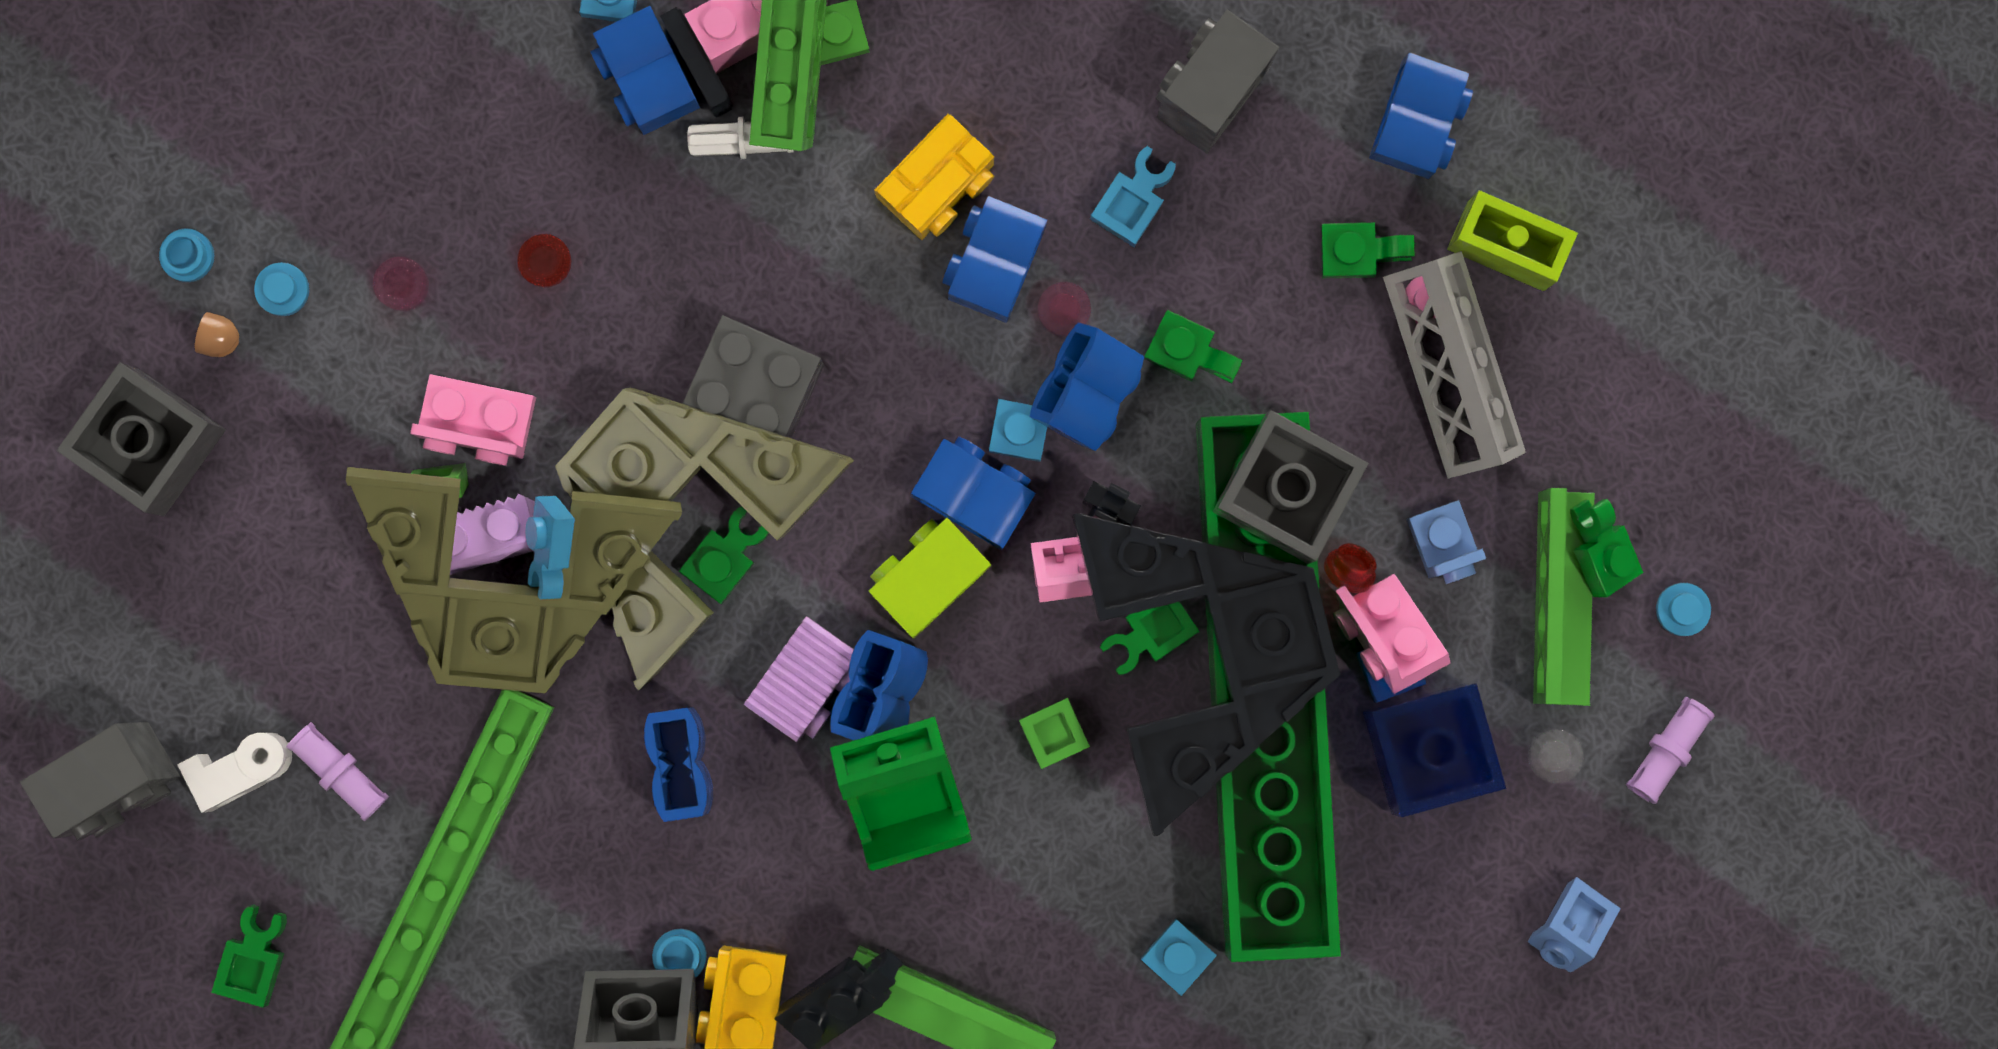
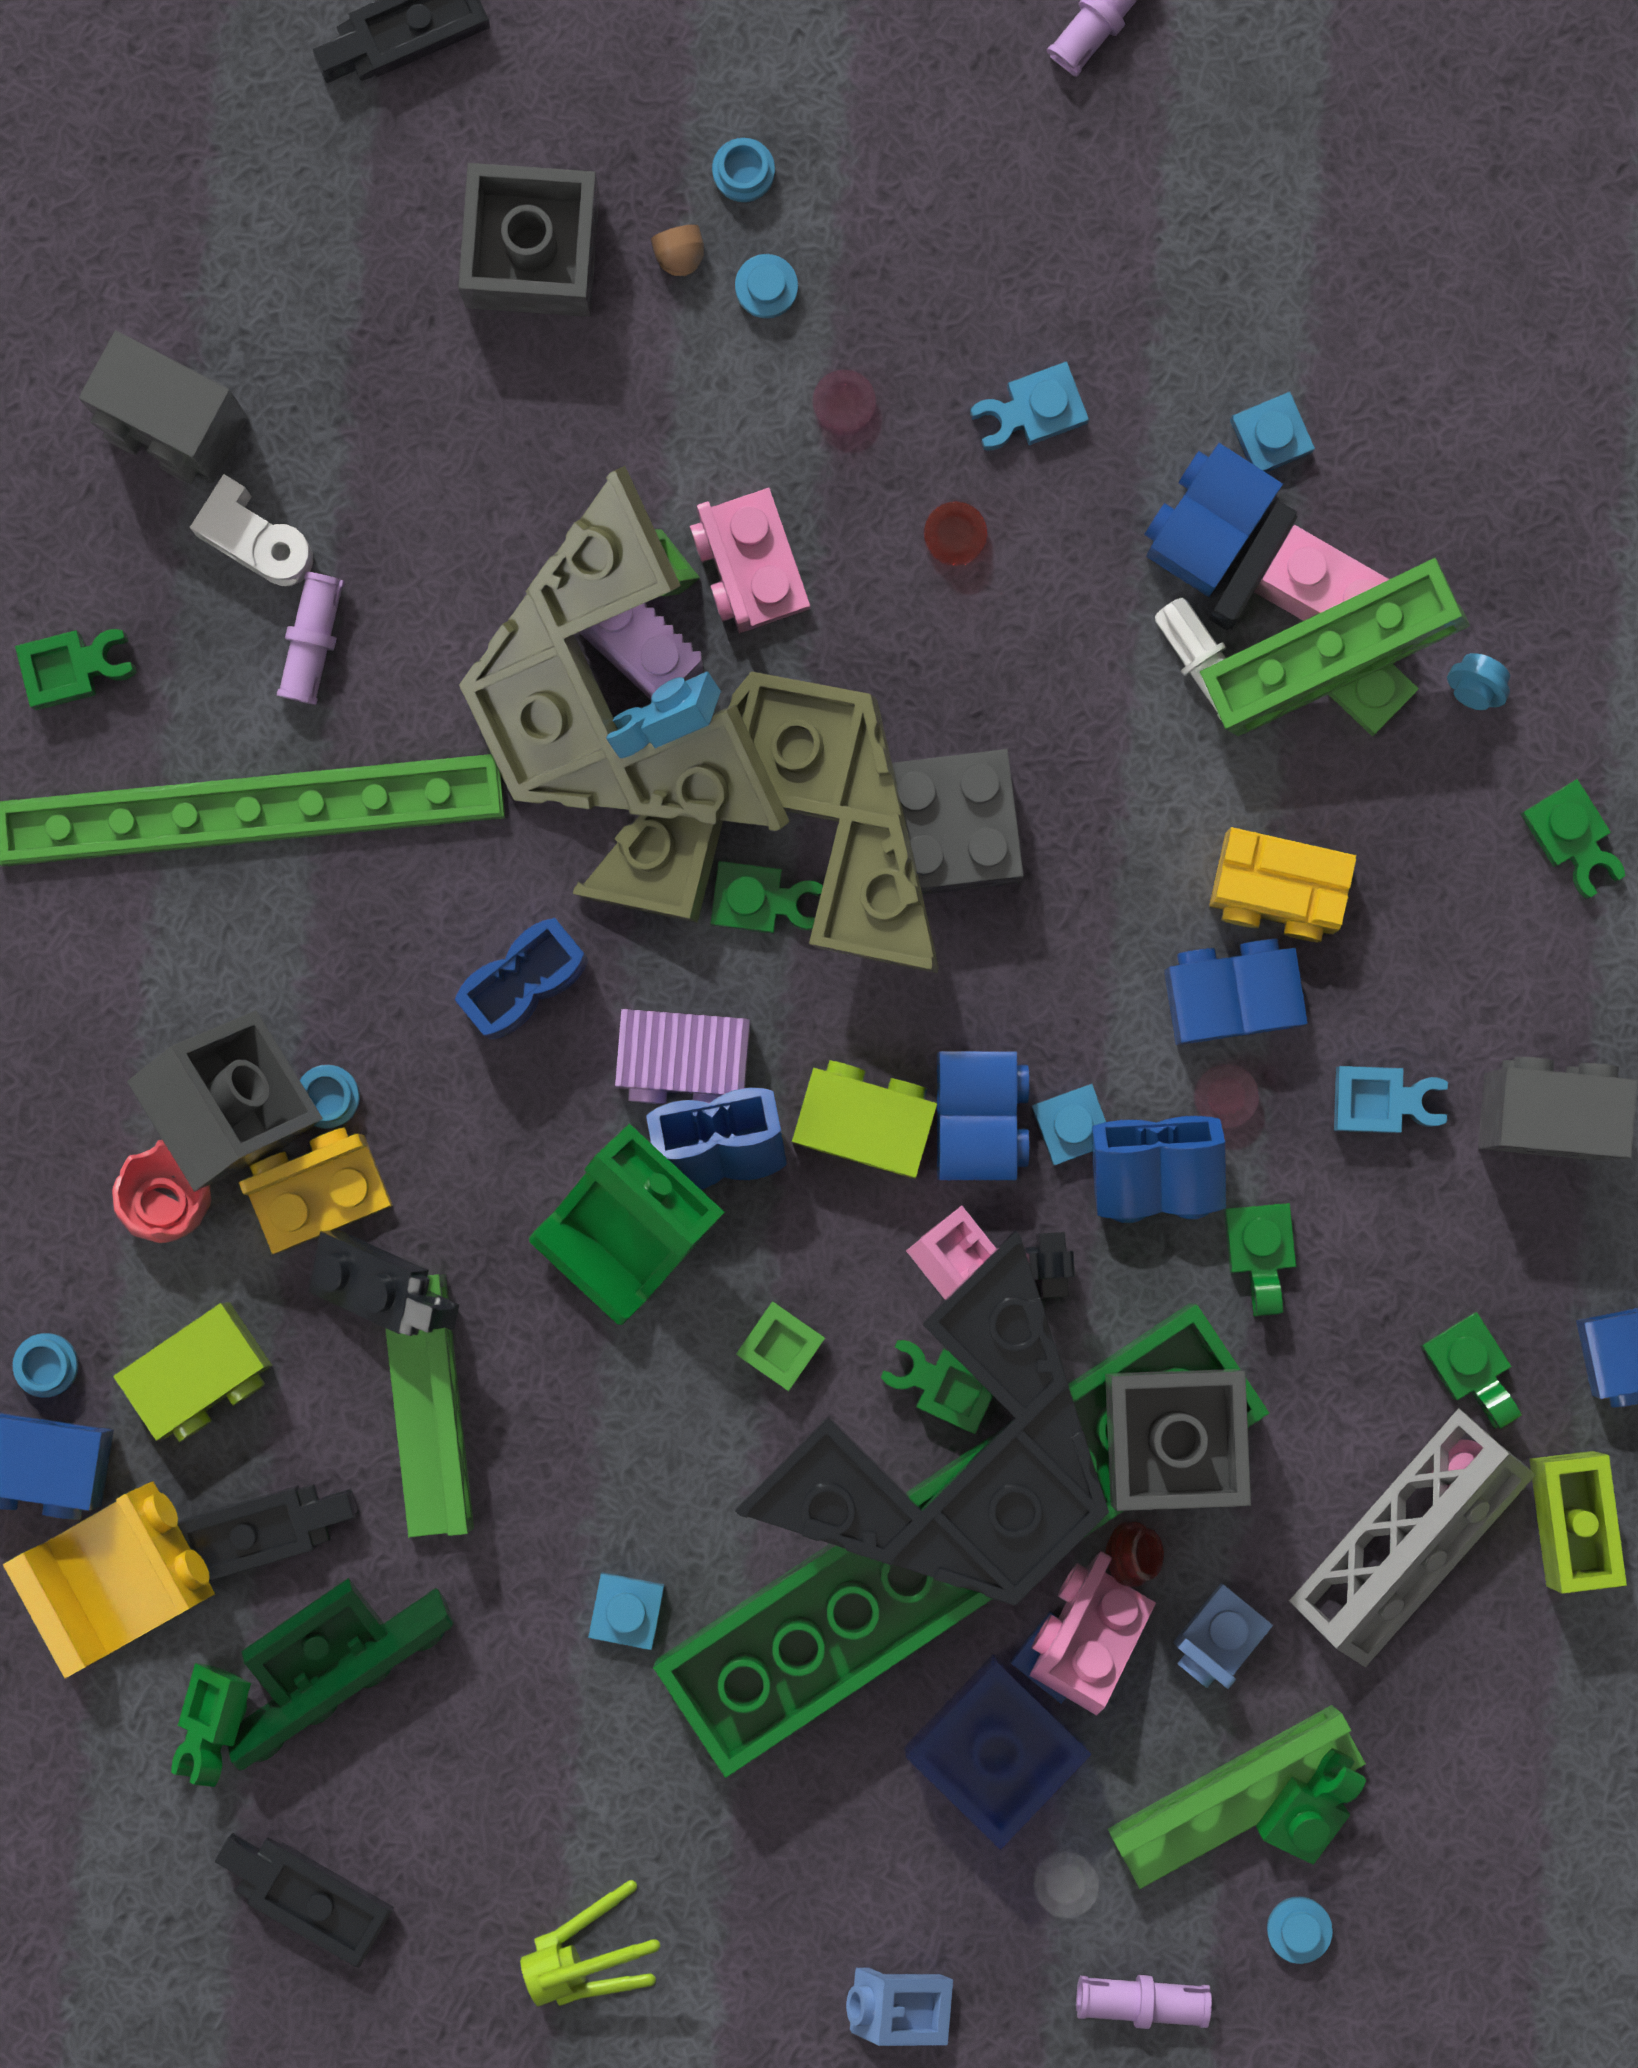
camera: 65 degrees right, 0 degrees up
(489, 143) = (1040, 405): none -> dark azure plate

